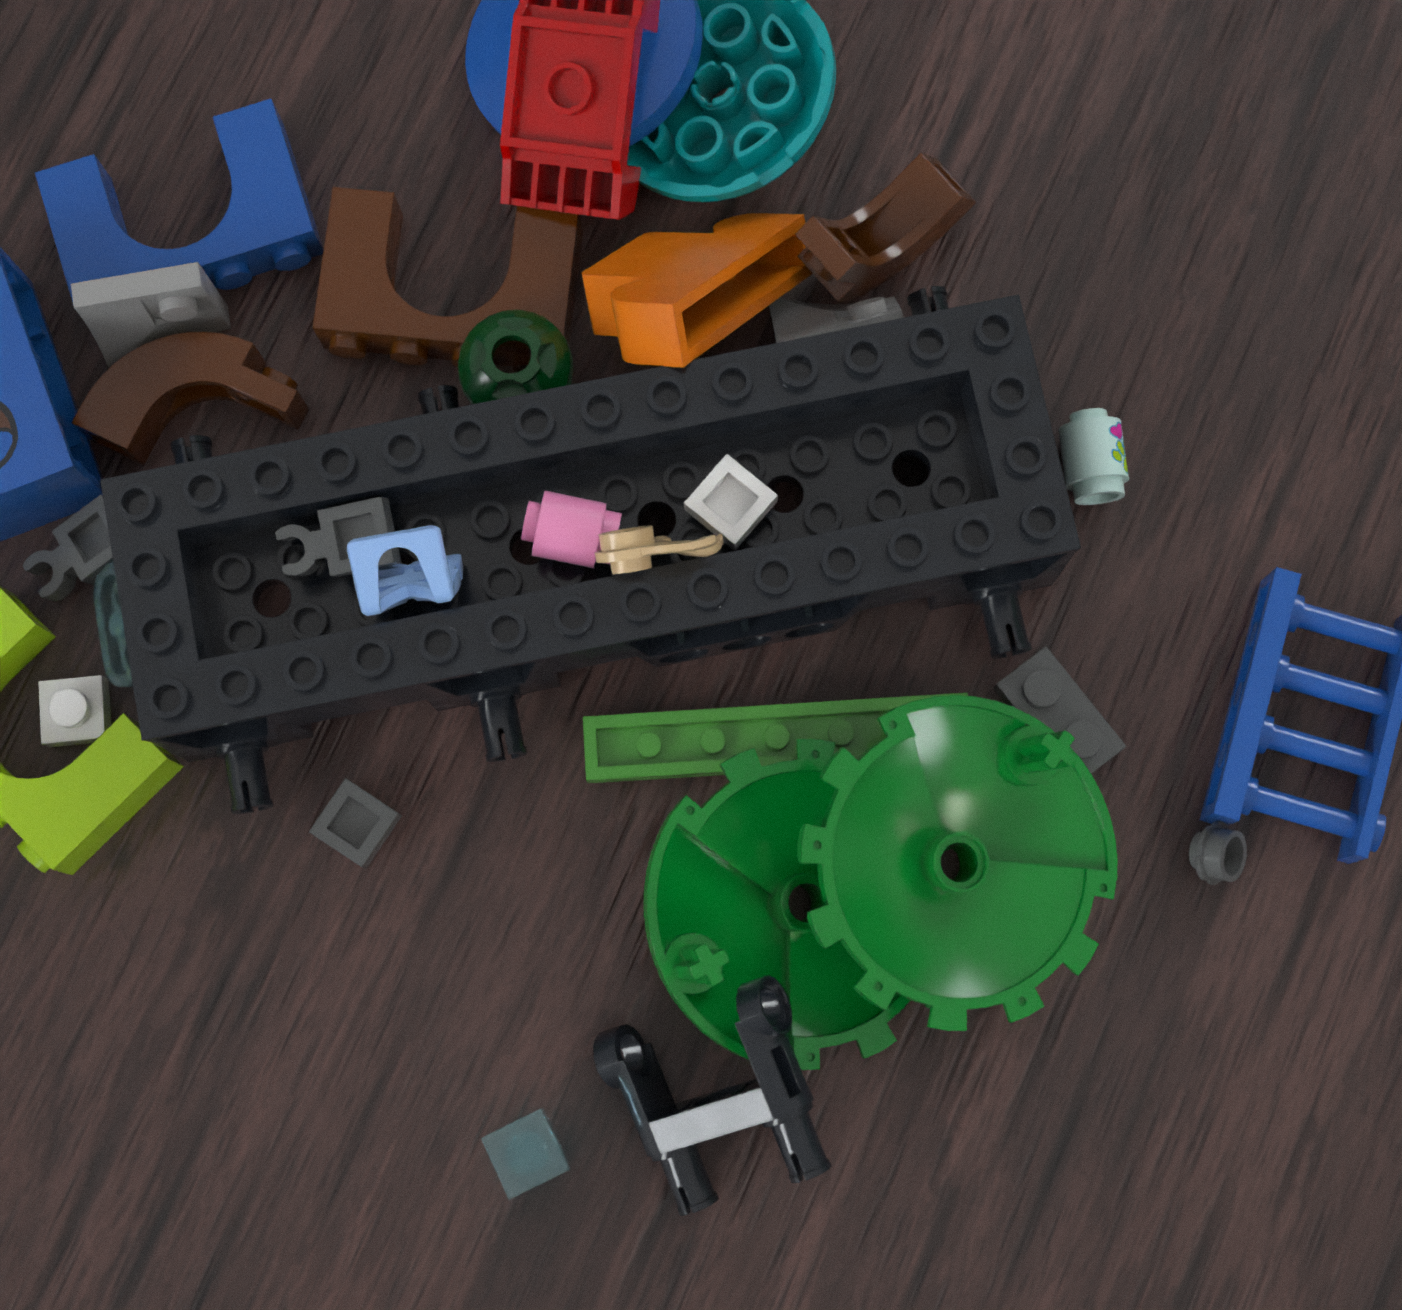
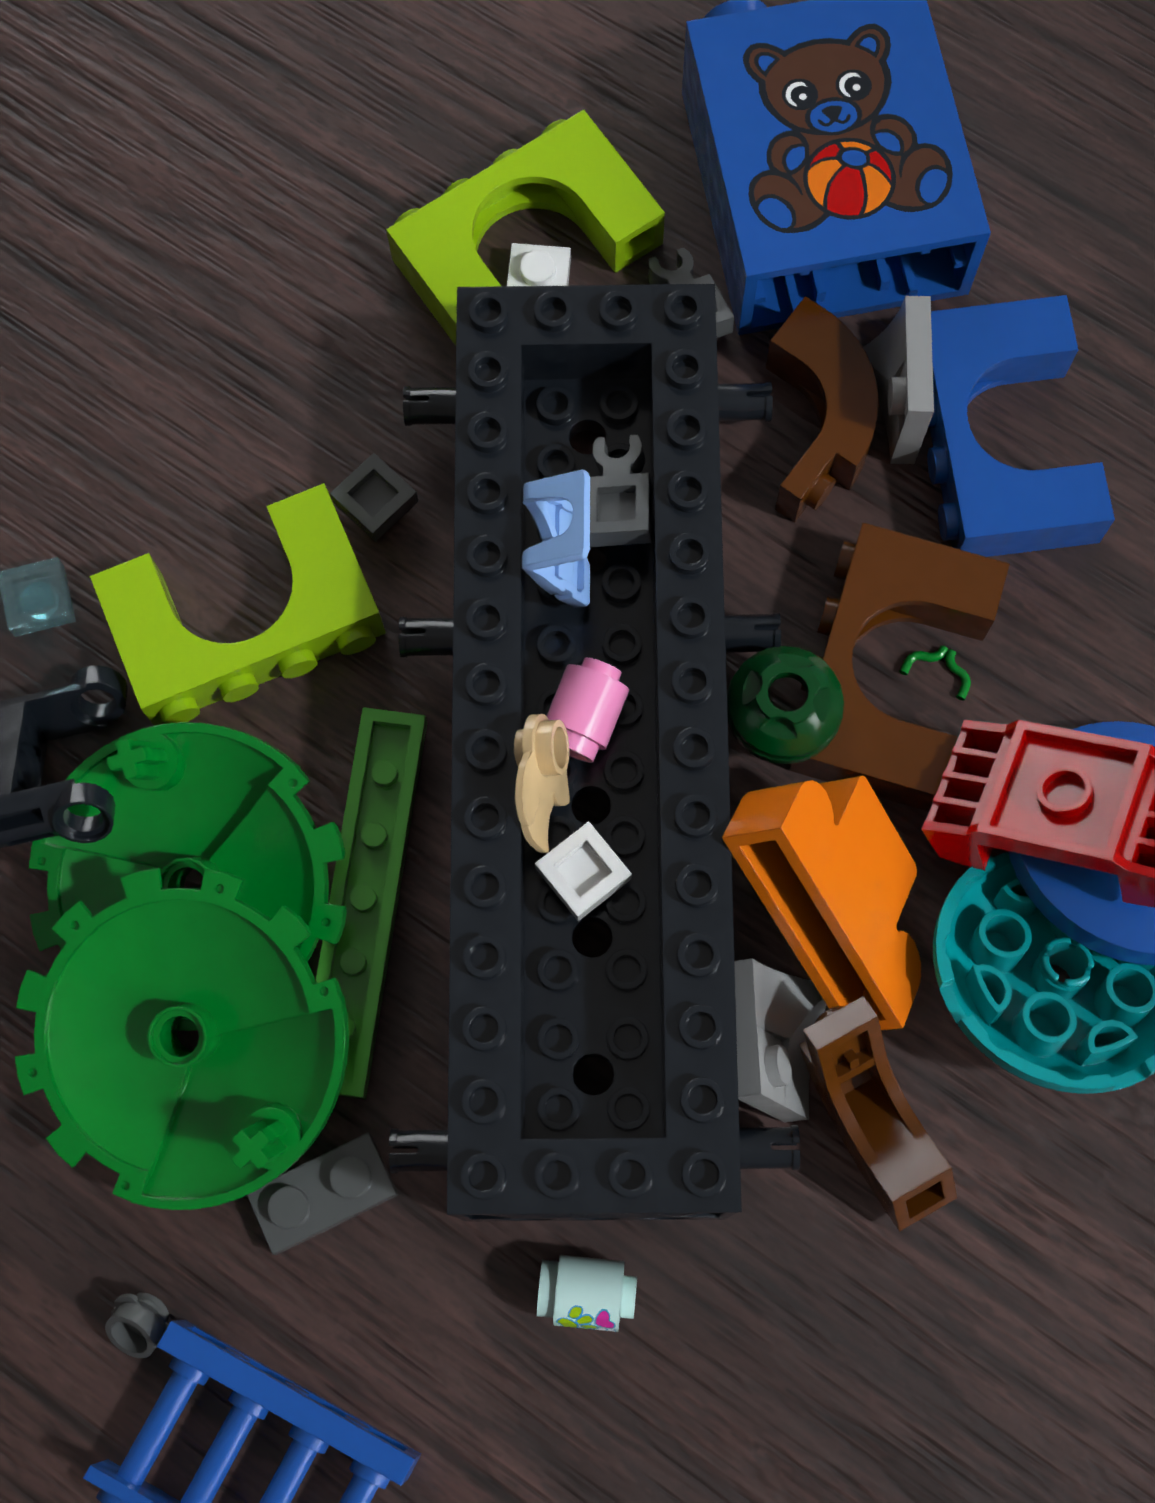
camera: 100 degrees right, 5 degrees down
(432, 240) = (950, 662): none -> green piece
(482, 840) = (182, 673): none -> lime arch

